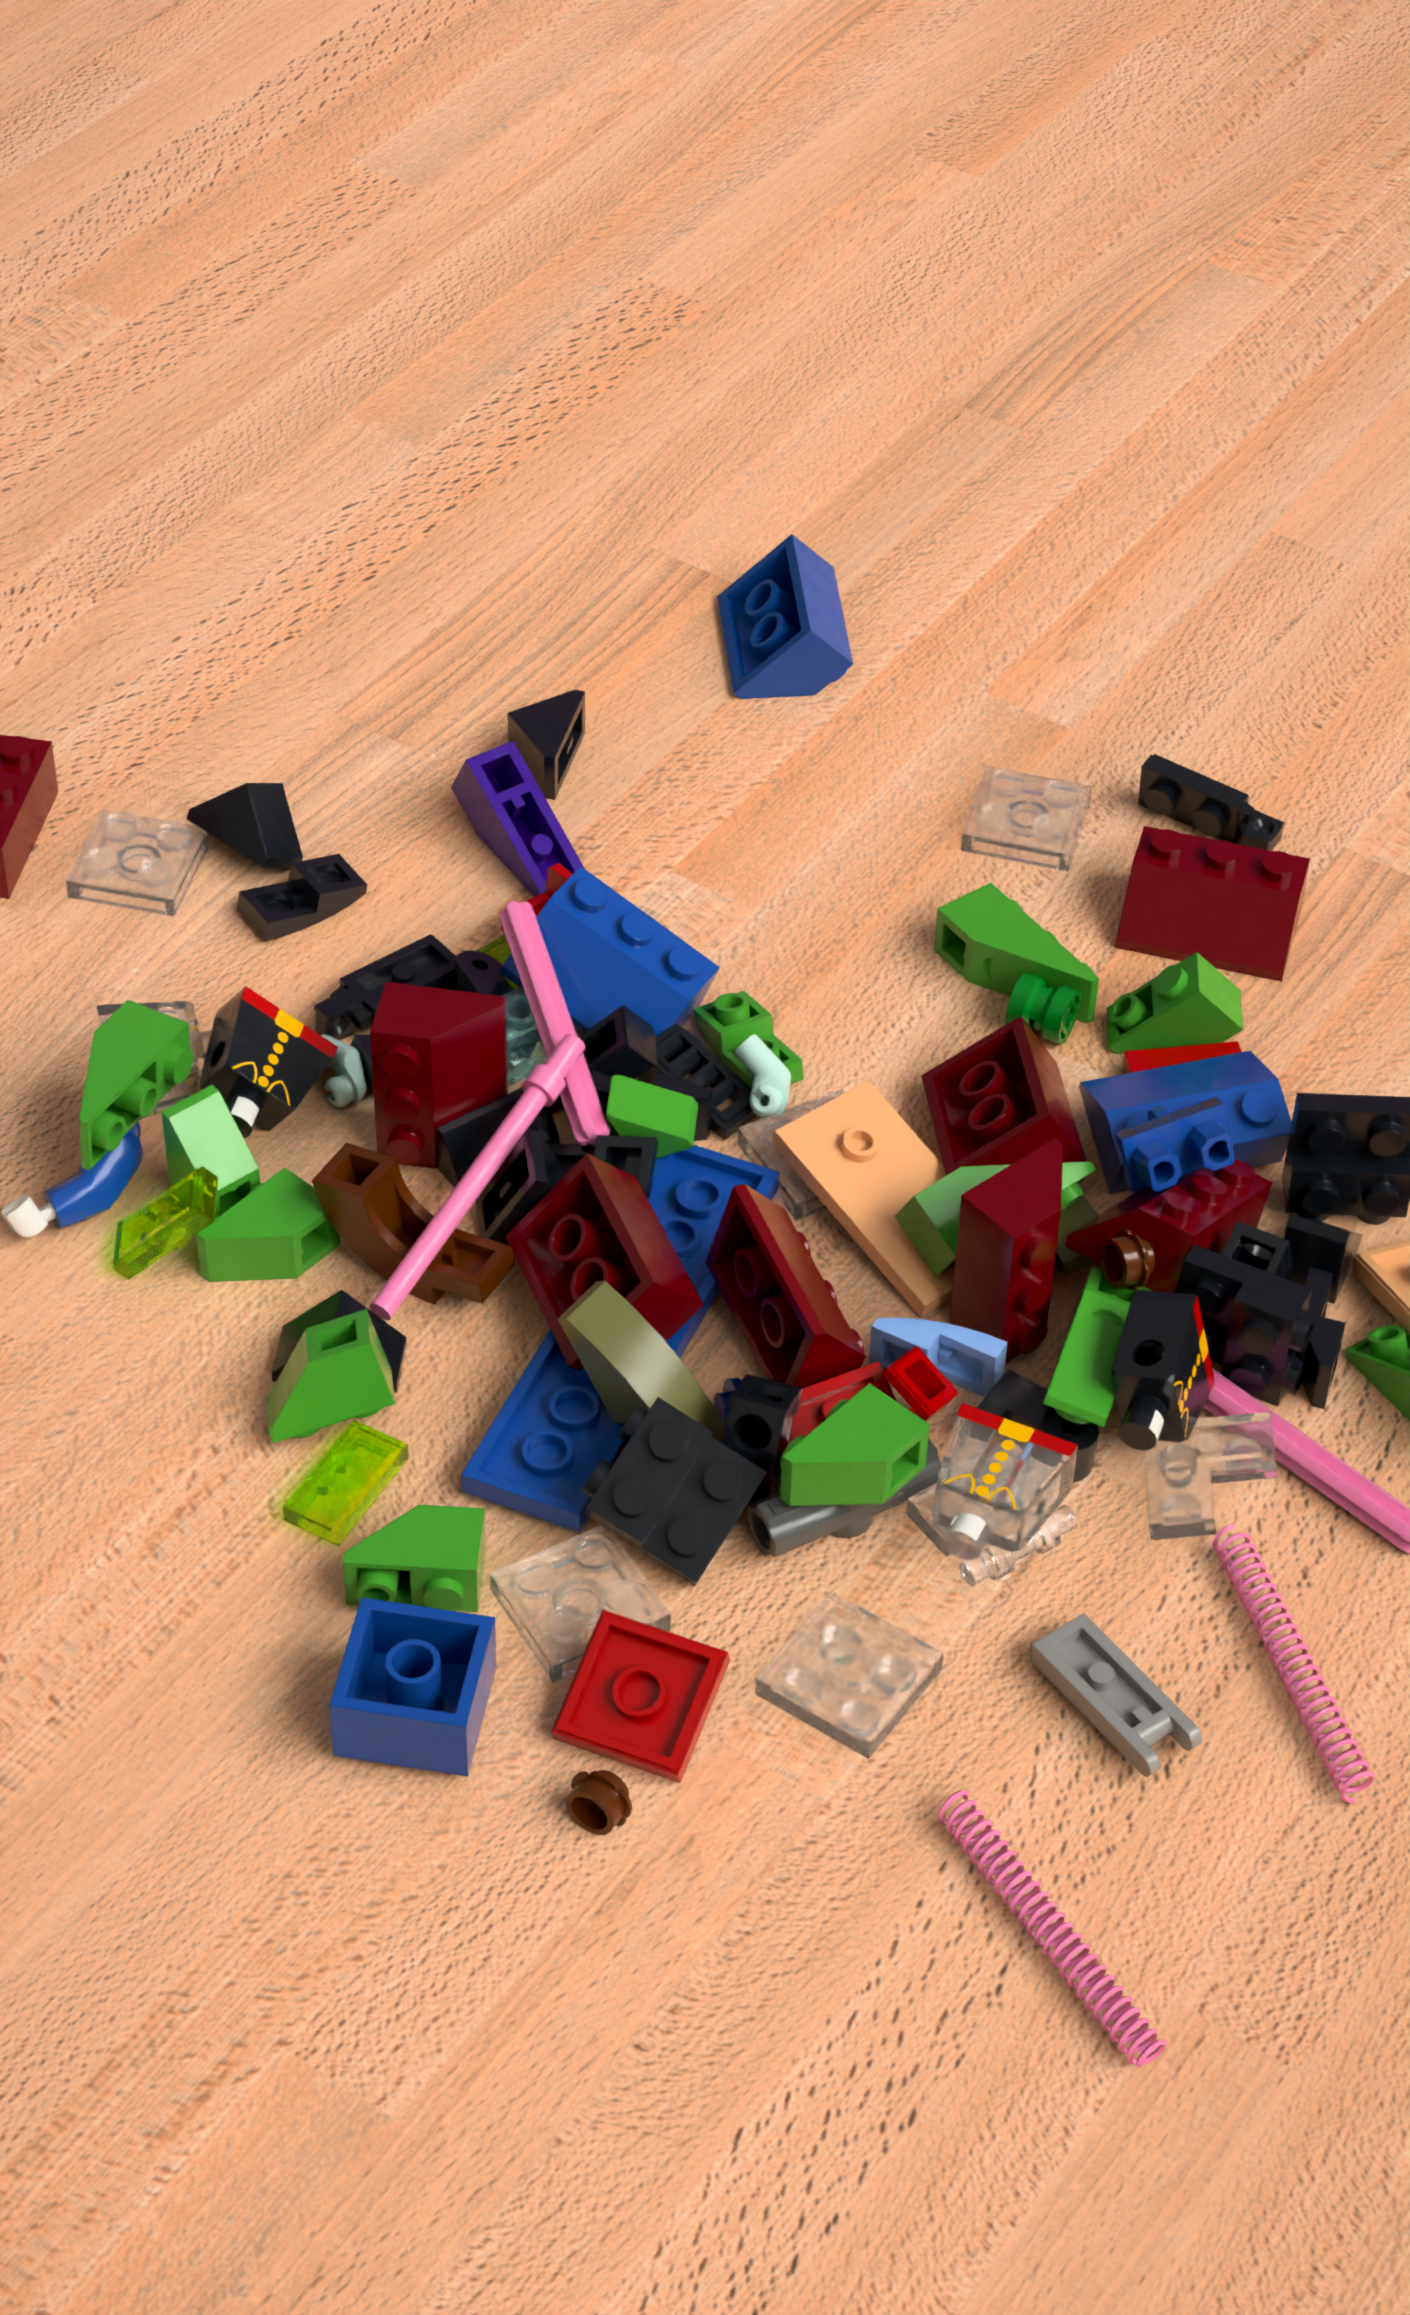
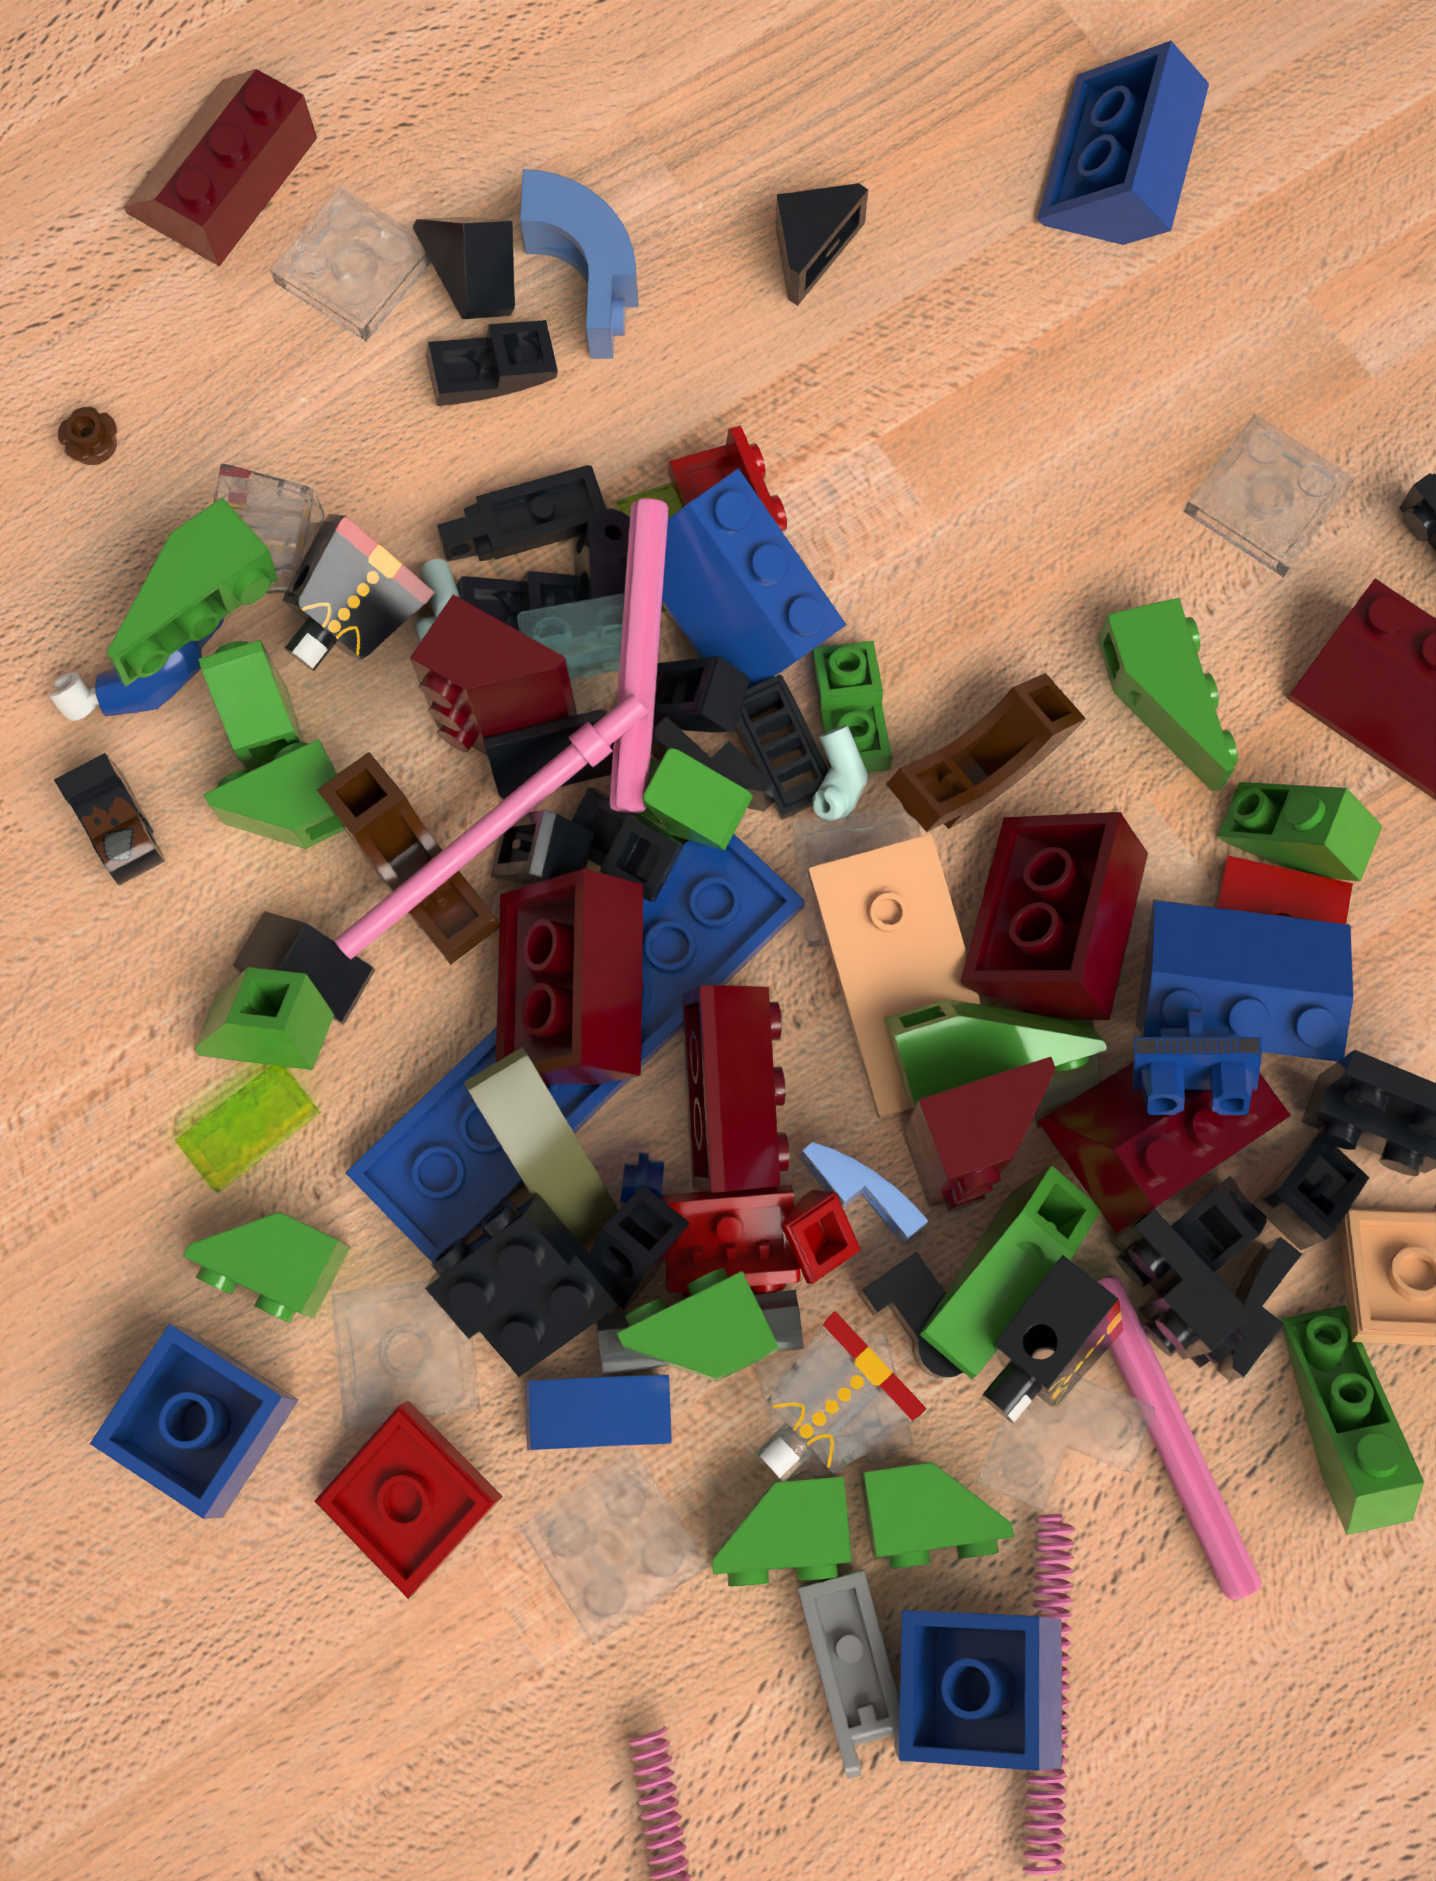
camera: 25 degrees right, 30 degrees up
(105, 1291) = (111, 818): none -> black leg
(165, 1222) = (187, 763): clear neon green plate -> none
(353, 790) = (583, 230): none -> medium blue arch
(513, 816) = (737, 345): dark purple slope -> none
(598, 1801) = (324, 1601): reddish brown plate -> none
(773, 1584) = (598, 1412): none -> blue slope
(890, 1031) = (988, 757): none -> reddish brown arch
(1003, 1608) = (790, 1527): none -> bright green slope
(1047, 1010) = (1167, 772): green wheel -> none
(1117, 1556) = (926, 1510): none -> bright green slope
(1126, 1260) = (1080, 1192): reddish brown plate -> none
(1231, 1645) = (981, 1690): none -> blue brick

